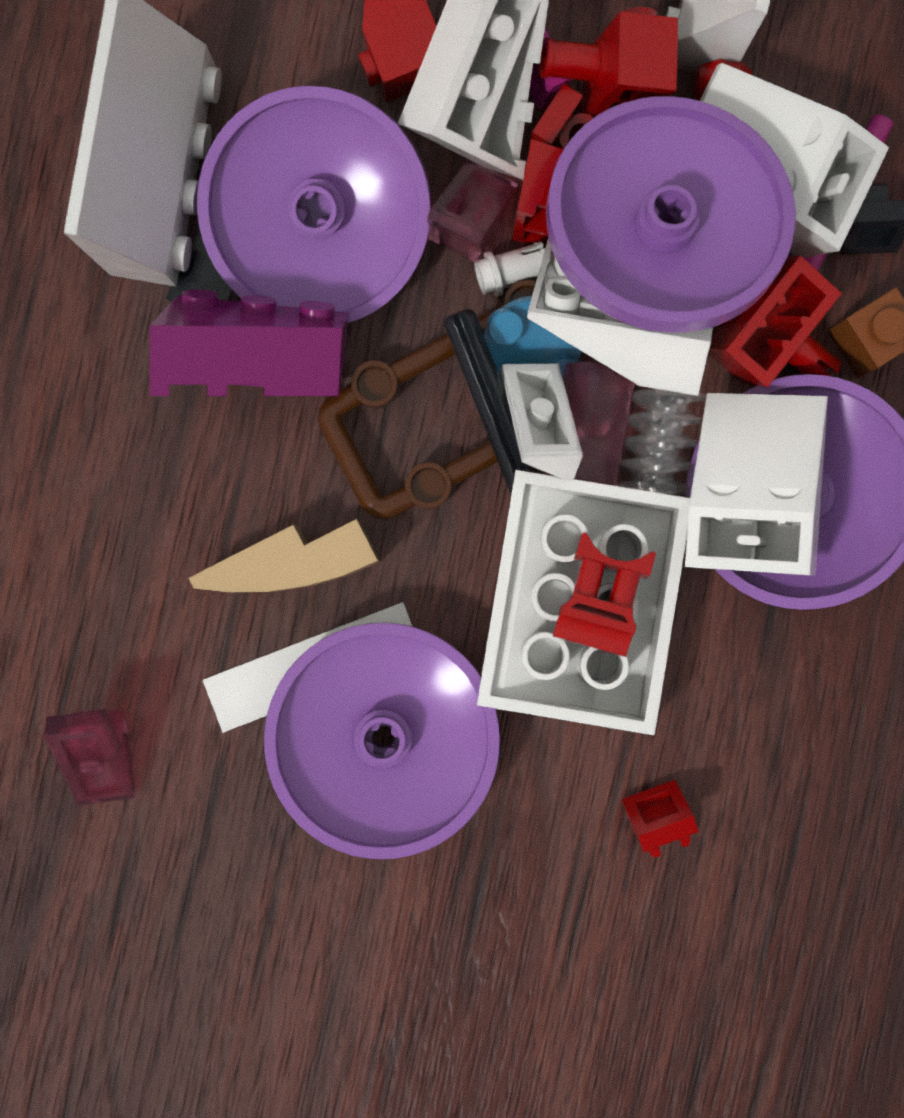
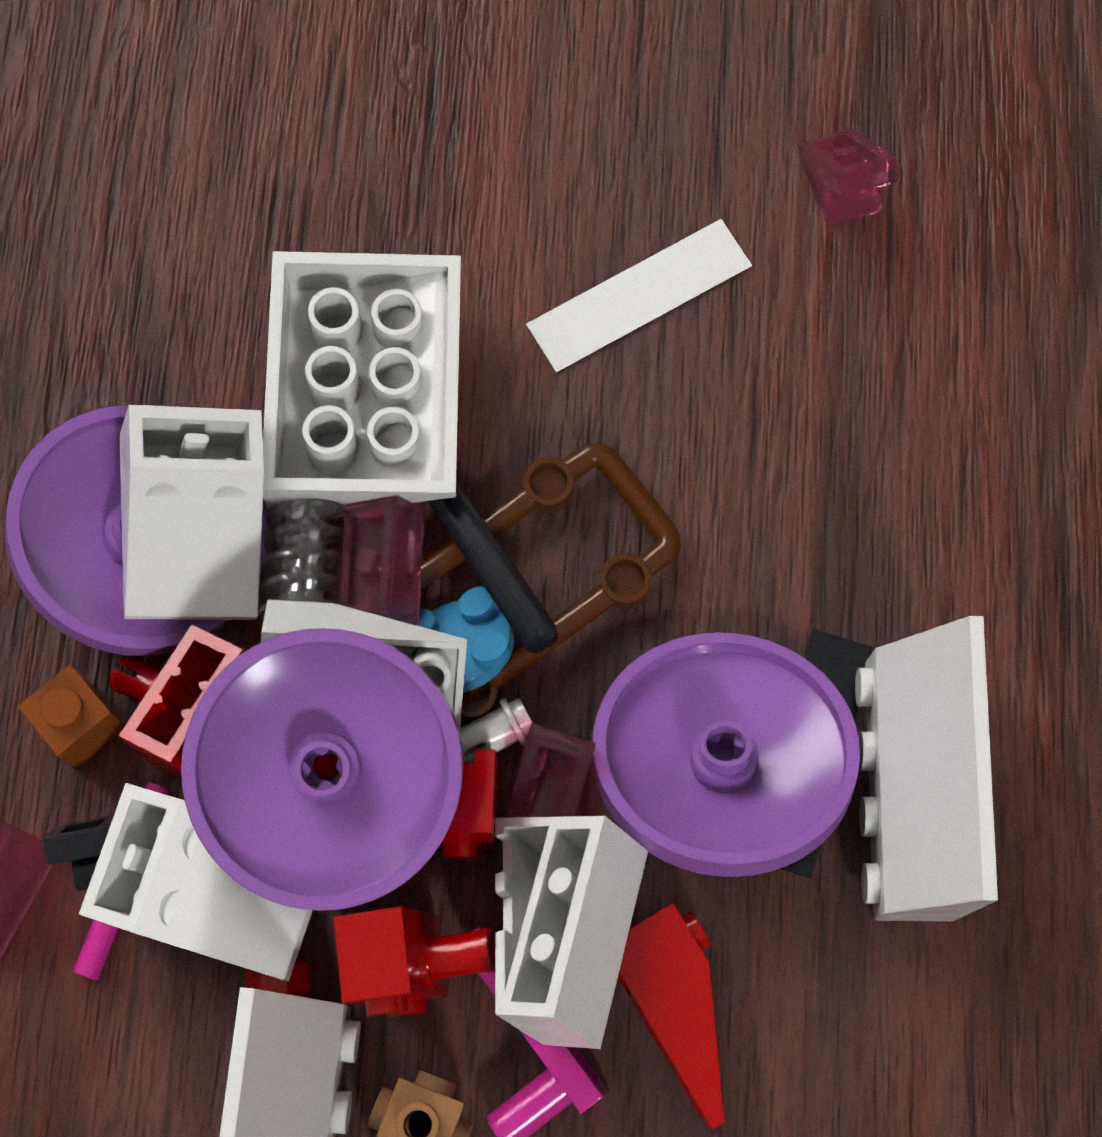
camera: 175 degrees right, 15 degrees down
(248, 345) = (770, 587): magenta wedge -> none
(291, 562) = (680, 382): tan slope -> none
(371, 795) = (562, 175): medium lavender dish -> none
(542, 418) = (436, 549): white slope -> none
(561, 118) = (465, 899): red tile -> none
(595, 621) = (344, 344): red piece -> none
(660, 817) = (257, 196): red tile -> none

